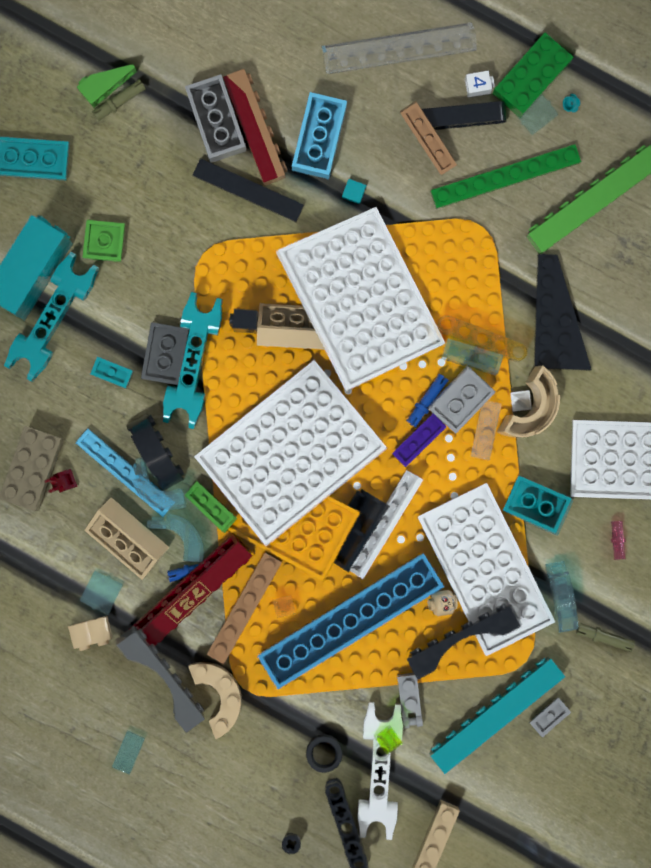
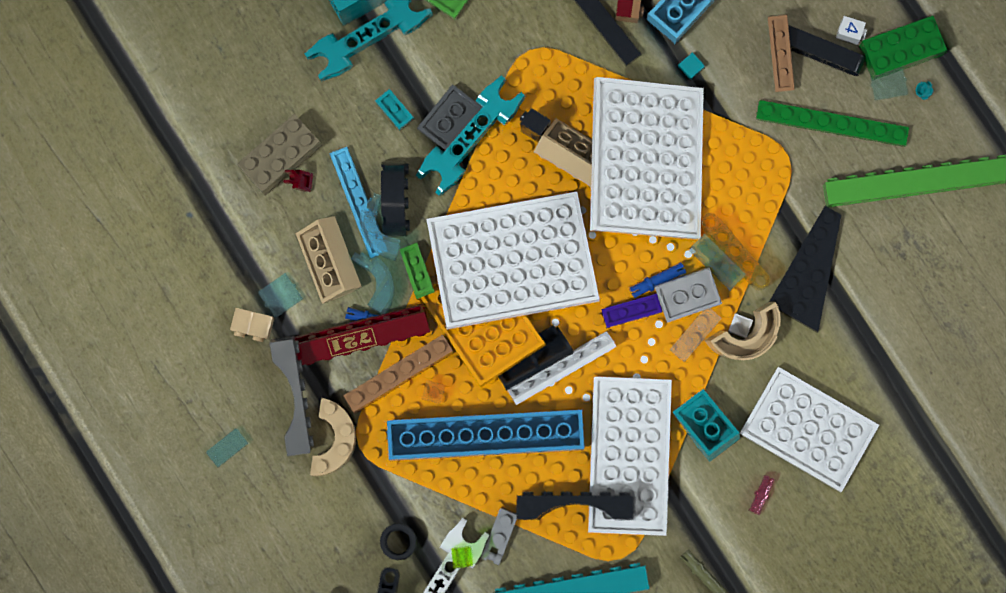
camera: 30 degrees right, 5 degrees down
(443, 603) = (575, 464): tan head -> none
(563, 596) = (684, 517): clear light blue arch -> none

